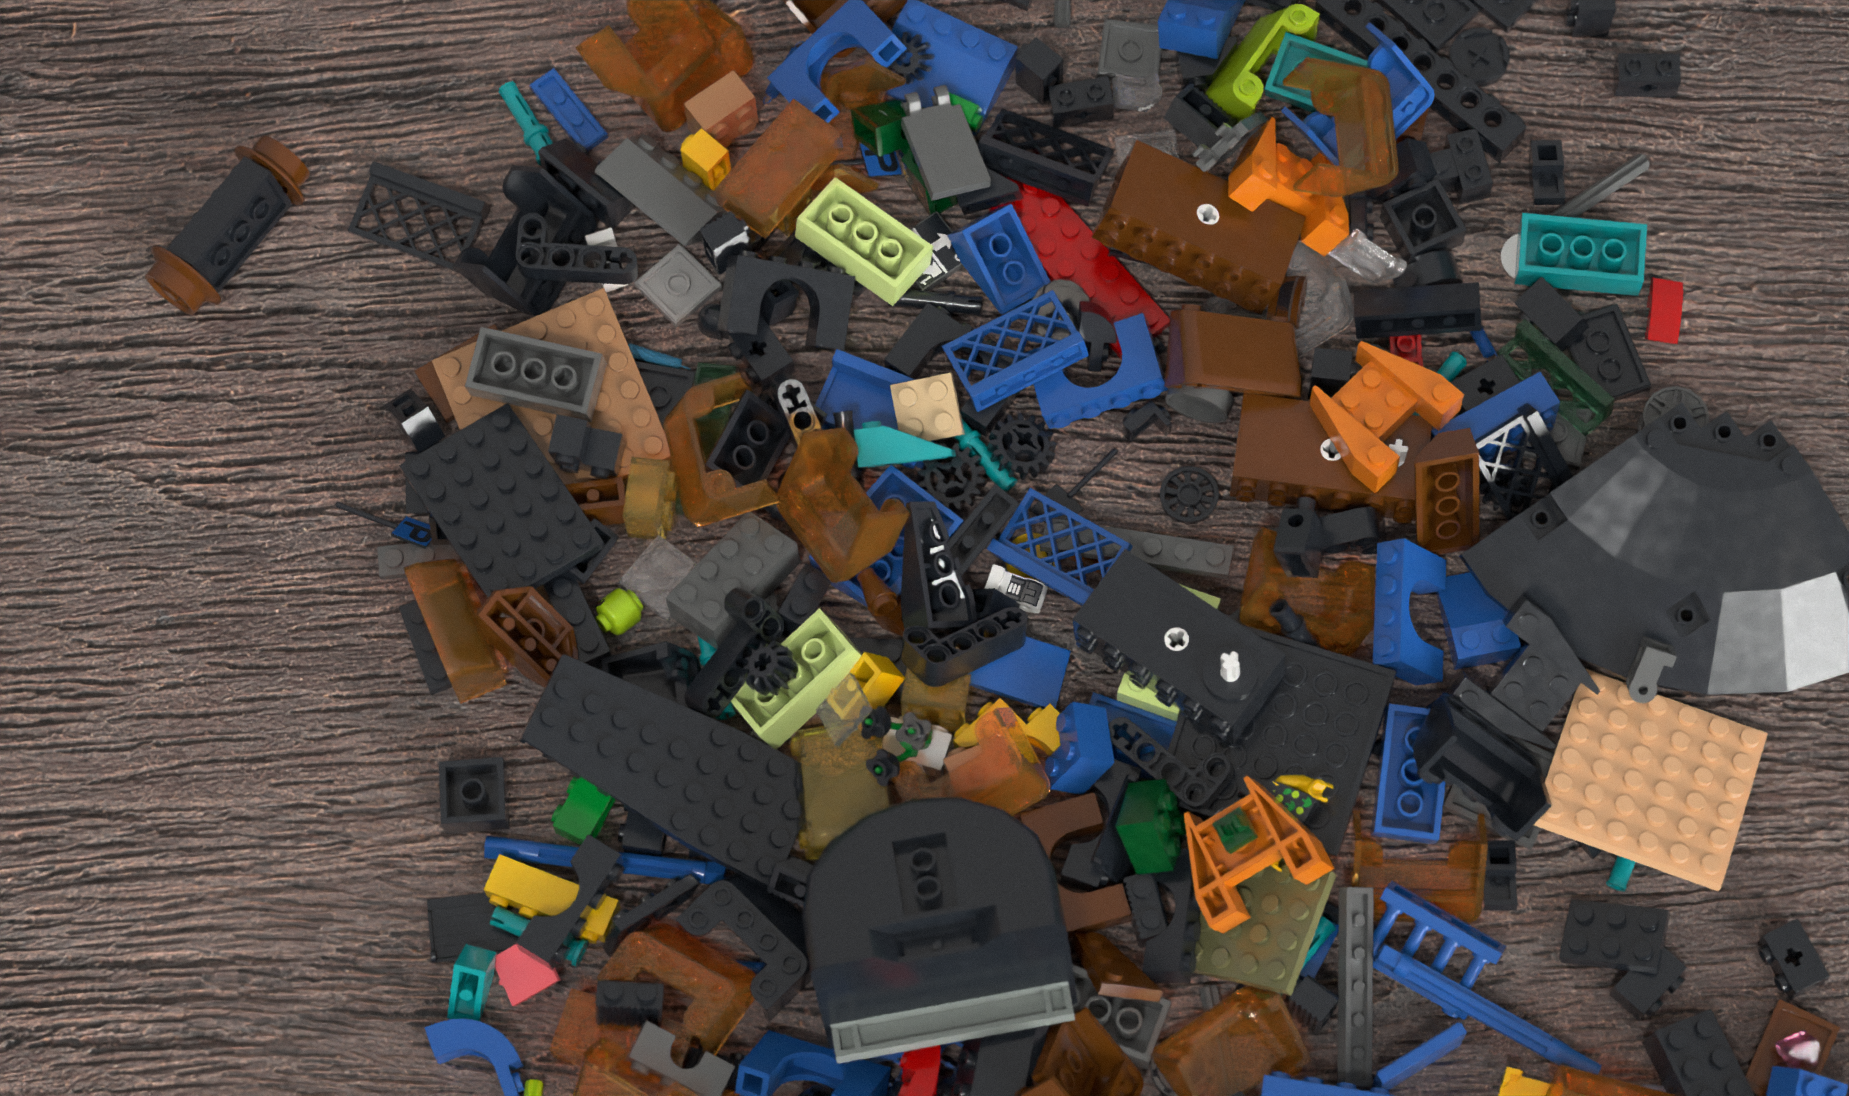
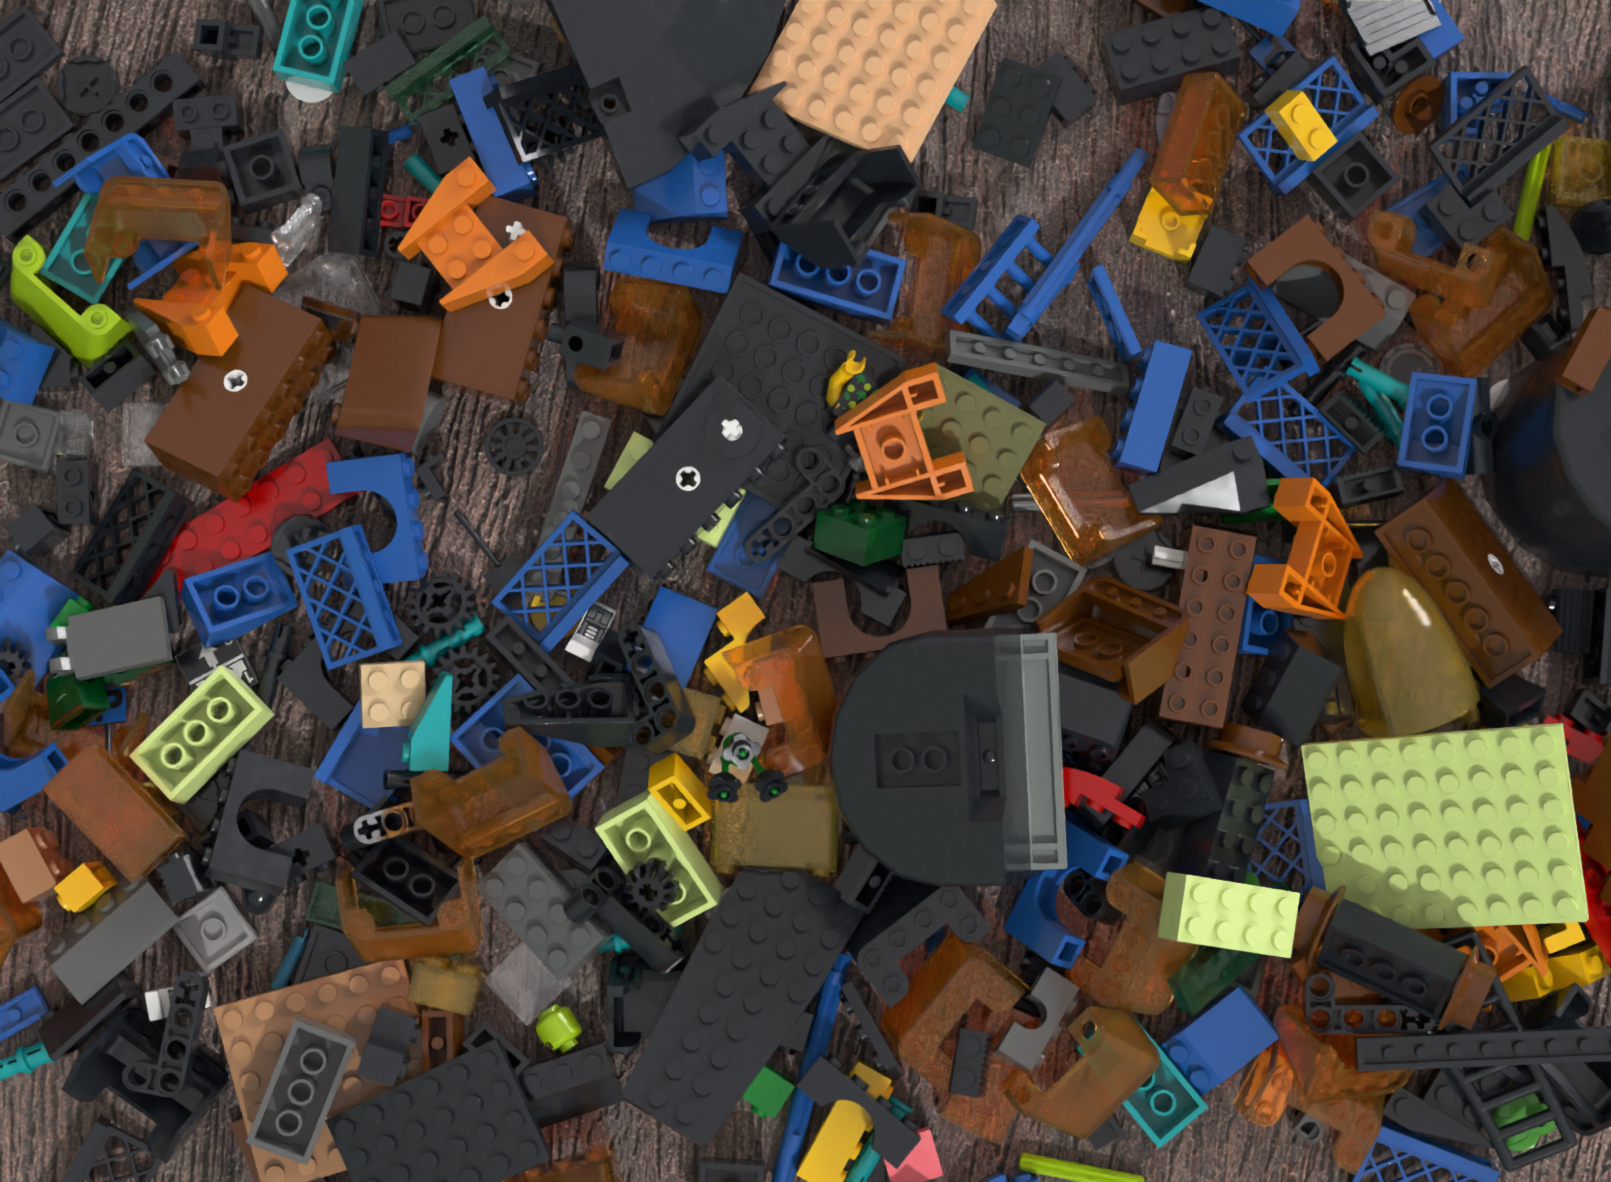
camera: 85 degrees left, 15 degrees up
(526, 631) = (581, 1122): reddish brown wedge -> none
(844, 709) = (703, 816): clear piece -> none
(877, 594) = (587, 768): reddish brown cone -> none
(1083, 750) = (768, 586): blue brick -> none
(1096, 329) = (334, 513): black brick -> none
(1235, 830) = (887, 451): dark green tile -> none
(1292, 624) = (678, 362): black pin -> none
(1447, 493) = (564, 190): reddish brown slope -> none
(1647, 668) = (765, 31): dark grey leg -> none

